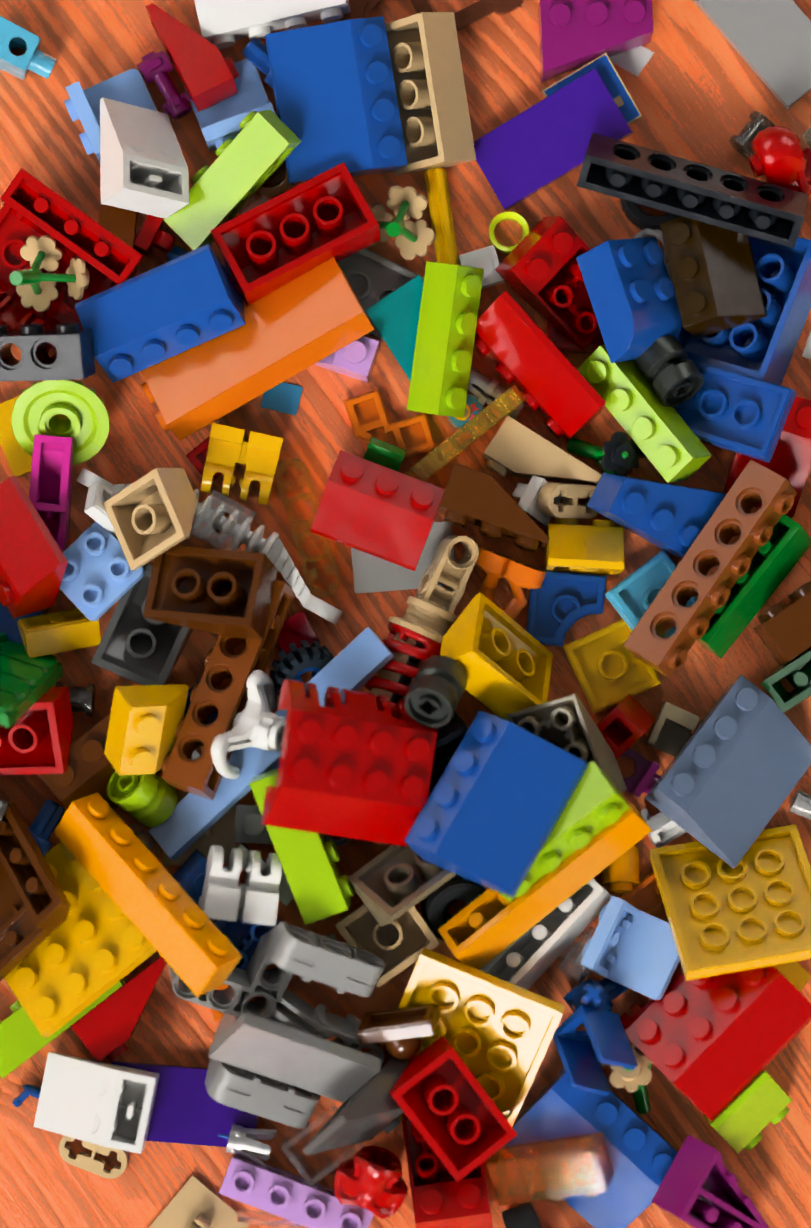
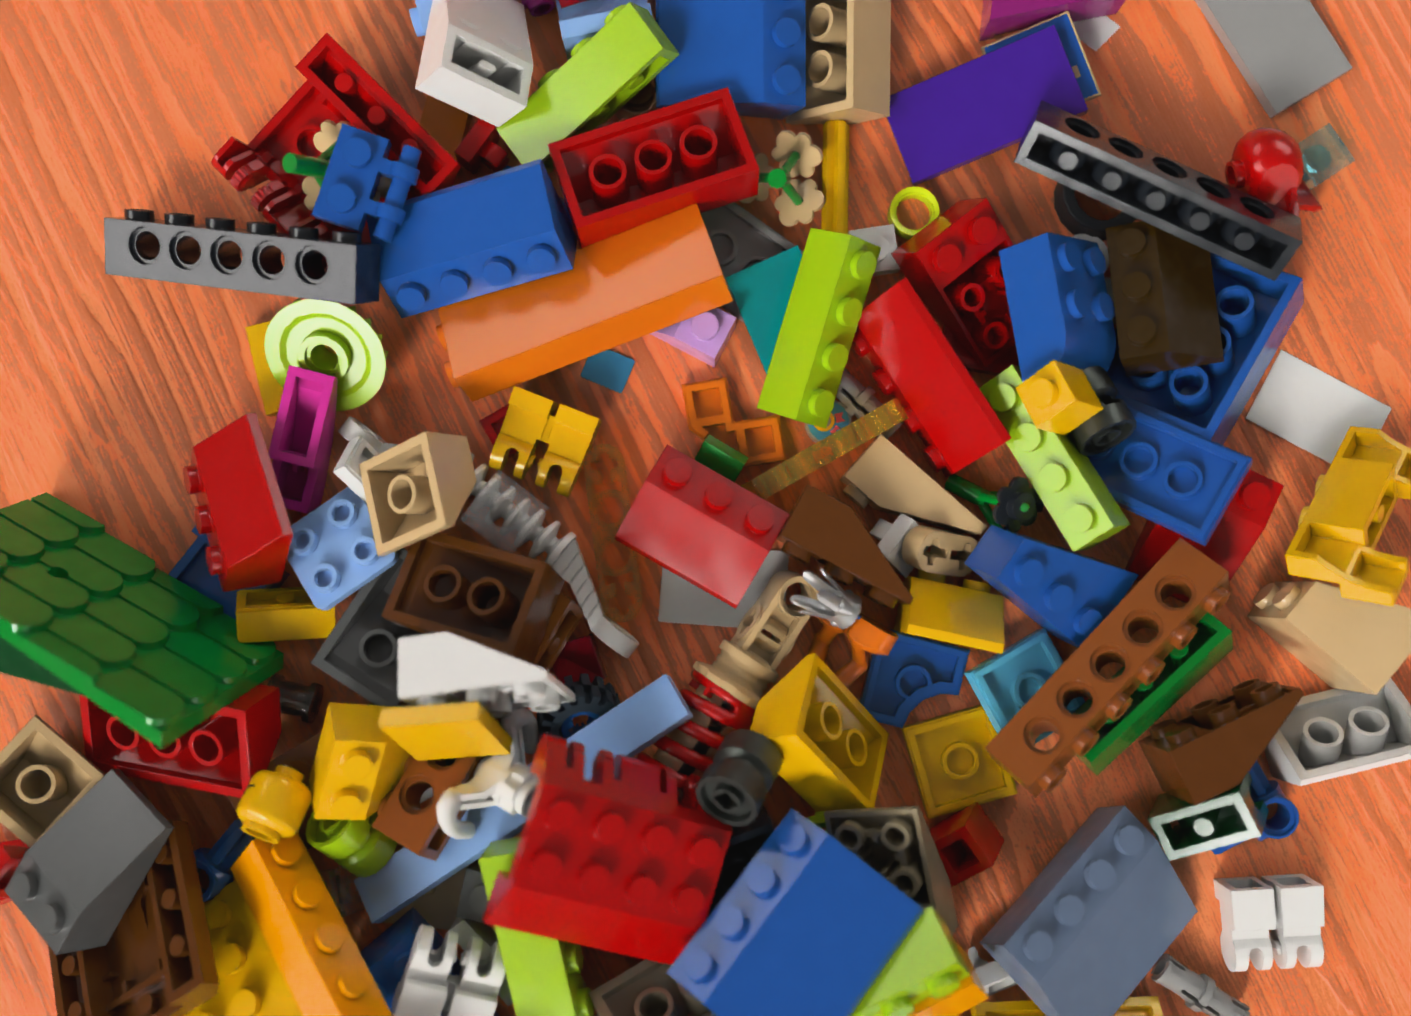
camera: 10 degrees right, 0 degrees up
(63, 283) = (353, 180): none -> blue plate
(84, 771) = (274, 804): none -> yellow head
(210, 691) = (445, 731): none -> yellow tile
(219, 650) = (456, 670): none -> white slope
(492, 553) = (833, 602): none -> flat silver piece
(637, 366) = (1059, 398): none -> yellow brick
(644, 775) = (978, 909): magenta bracket -> none
(671, 728) = (1023, 852): dark tan panel -> none
(743, 141) = (1218, 149): clear smoke bush -> none

